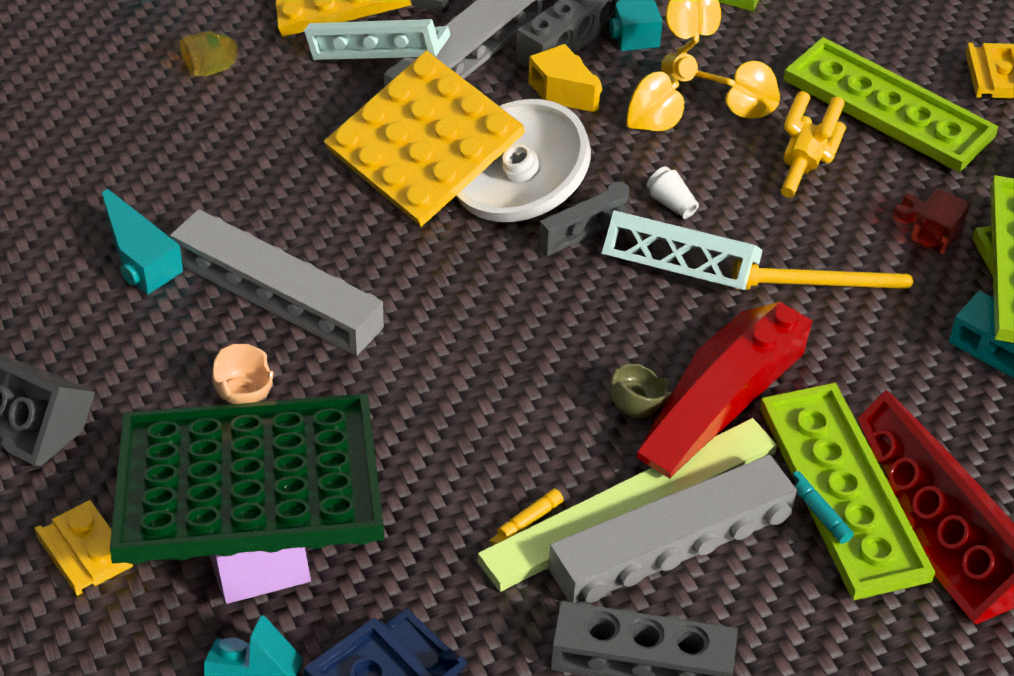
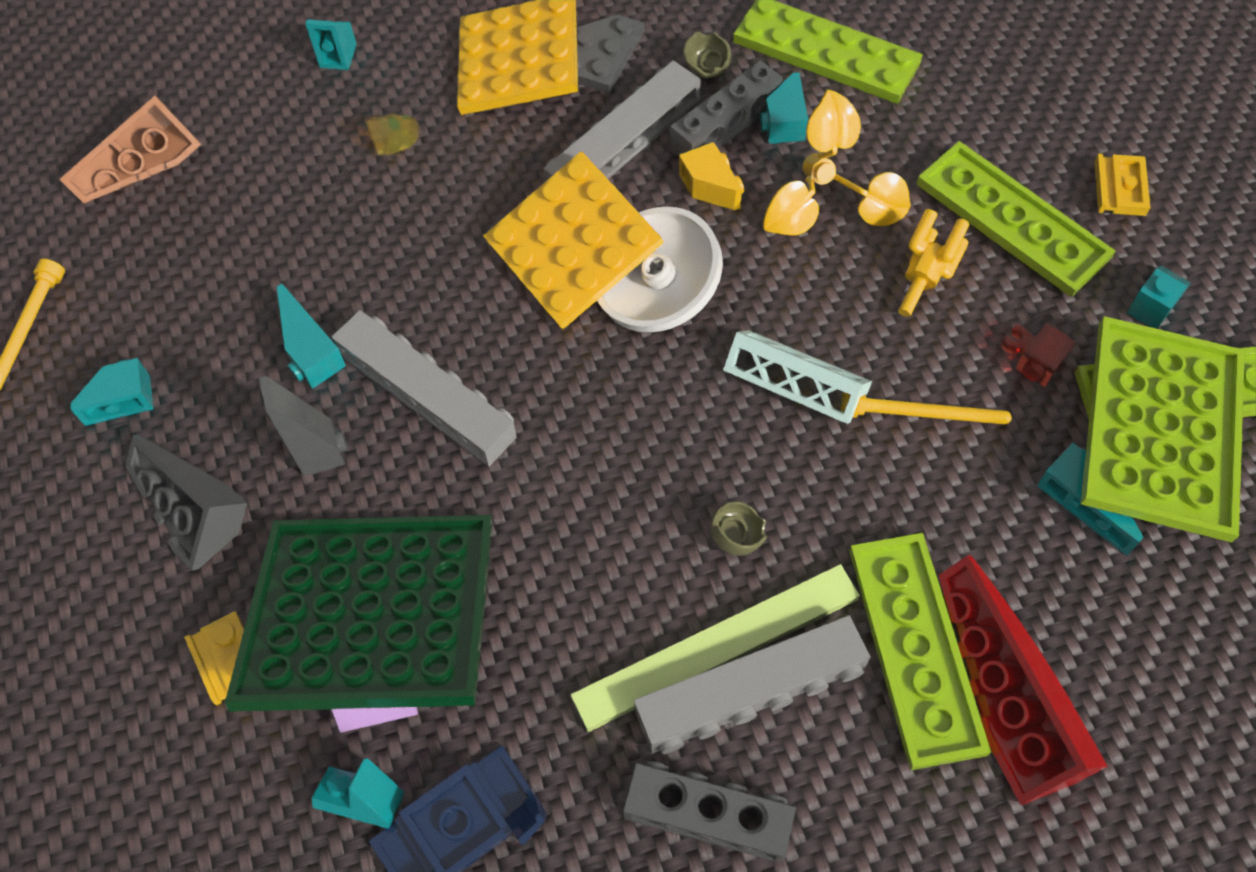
camera: 10 degrees right, 15 degrees up
(153, 316) = (304, 429): none -> dark grey wedge
(241, 374) = (380, 488): light nougat hair -> none
(375, 39) = (541, 131): light aqua fence -> none
(528, 516) = (620, 656): yellow wheel -> none
(582, 220) = (710, 334): dark grey plate -> none
(671, 191) = (796, 308): white cone -> none
(723, 381) = (815, 524): red wedge -> none
(822, 509) = (891, 676): teal wheel -> none

